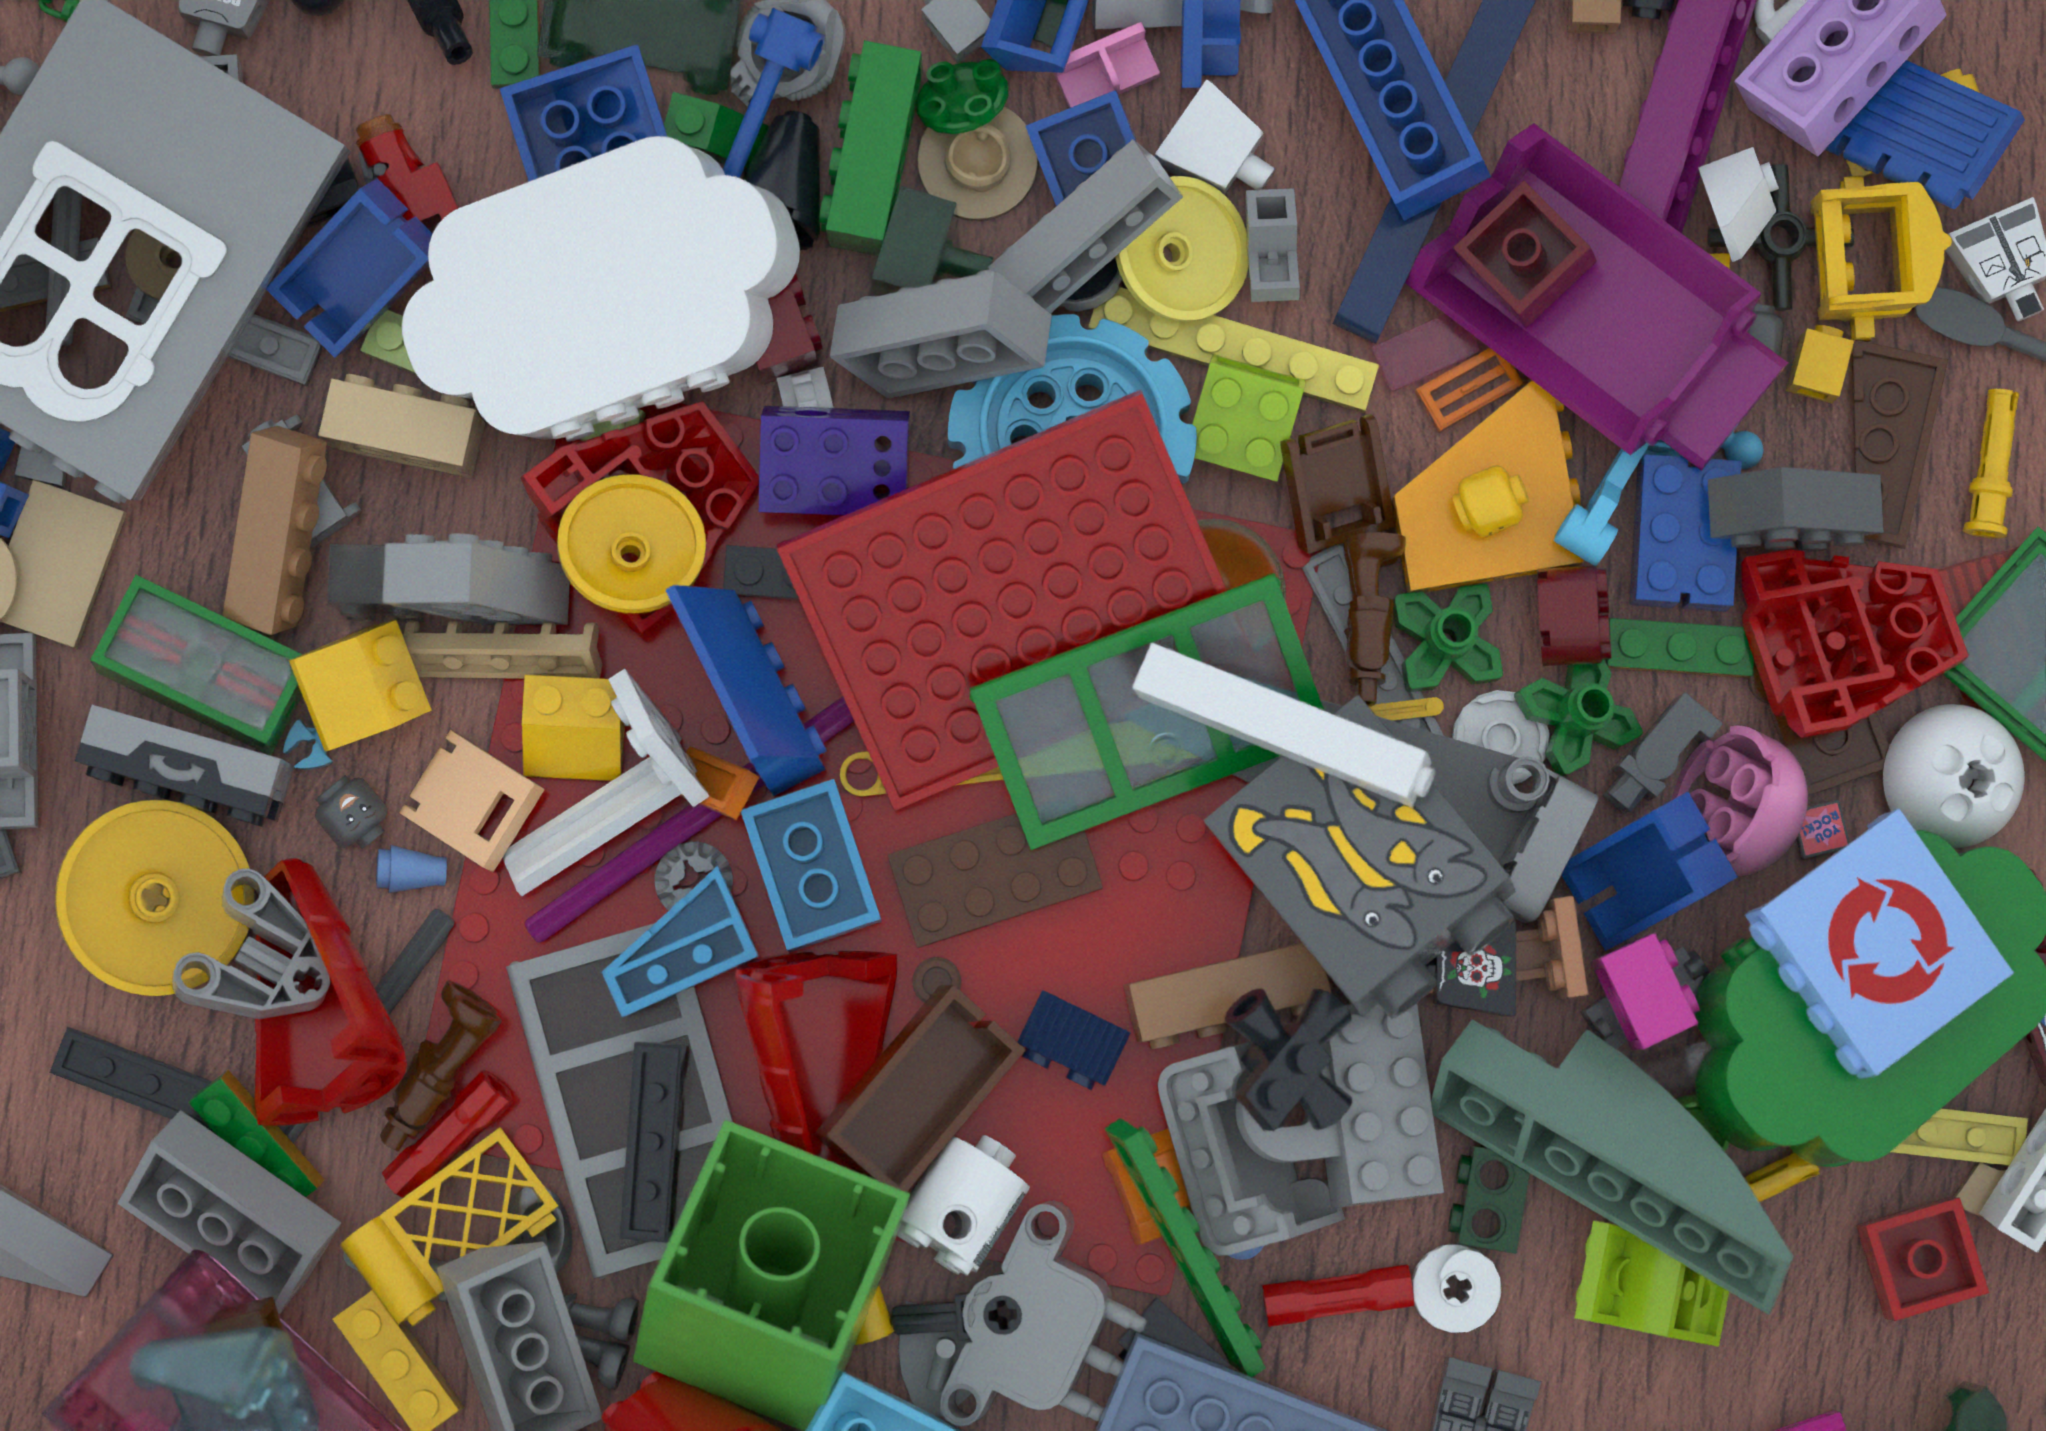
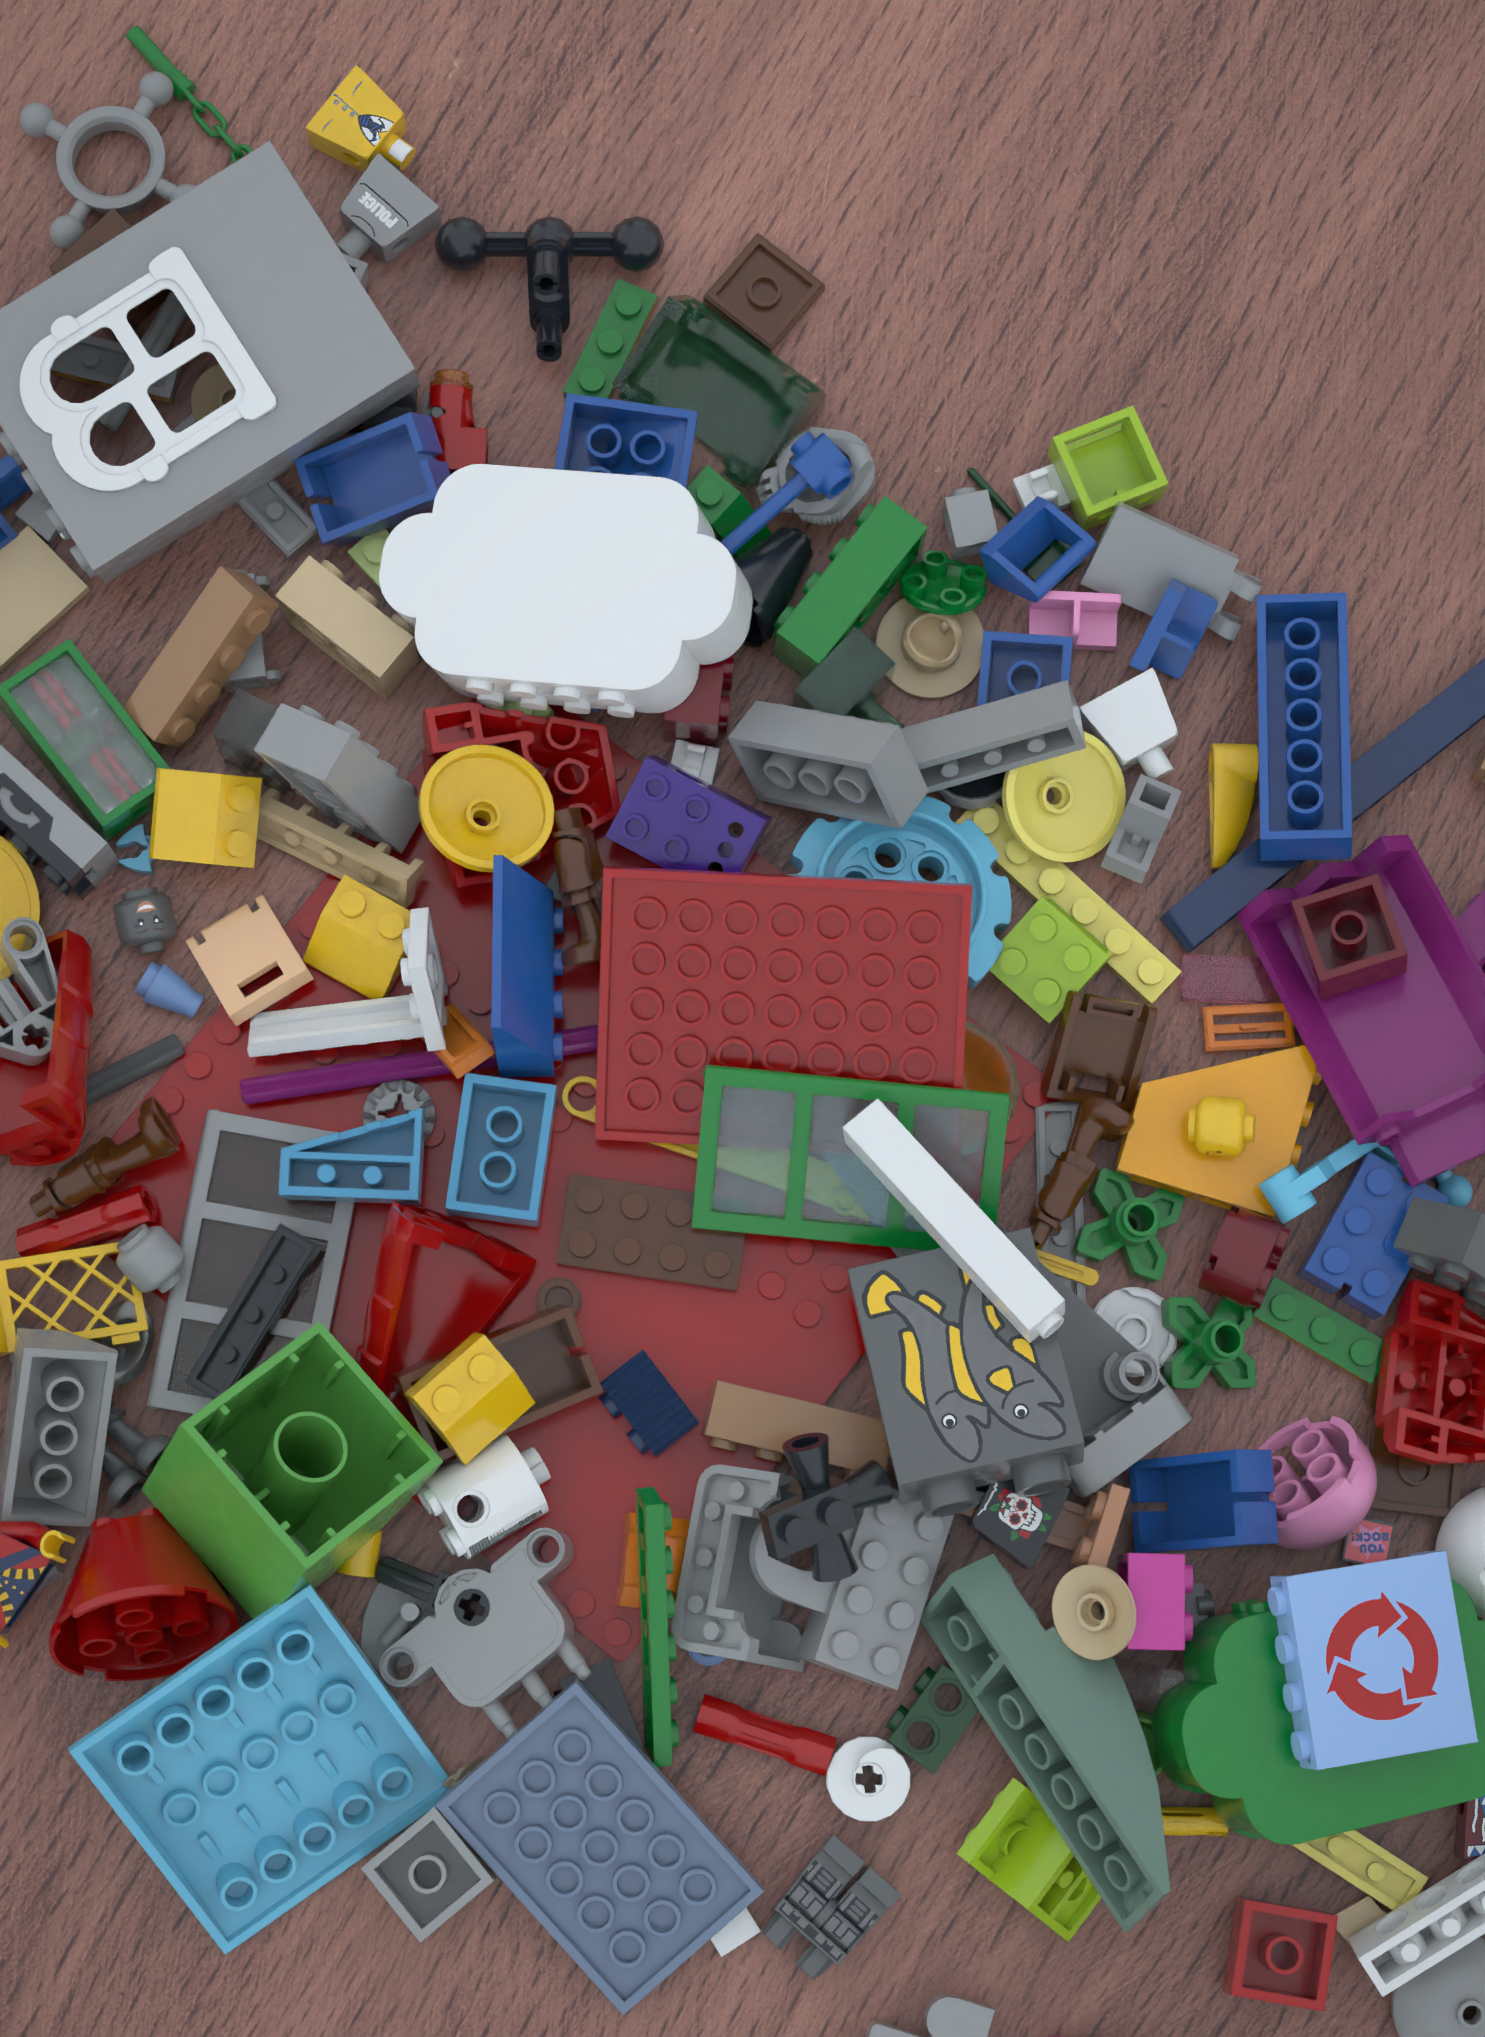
camera: 20 degrees right, 5 degrees down
(527, 1137) = (150, 1259): none -> light grey head
(758, 570) = (581, 883): none -> reddish brown piece
(903, 1119) = (470, 1397): none -> yellow slope
(1341, 161) = (1231, 795): none -> yellow piece
(1581, 1038) = (1078, 1614): none -> tan dish
(1658, 752) = (1258, 1409): dark grey hips -> none

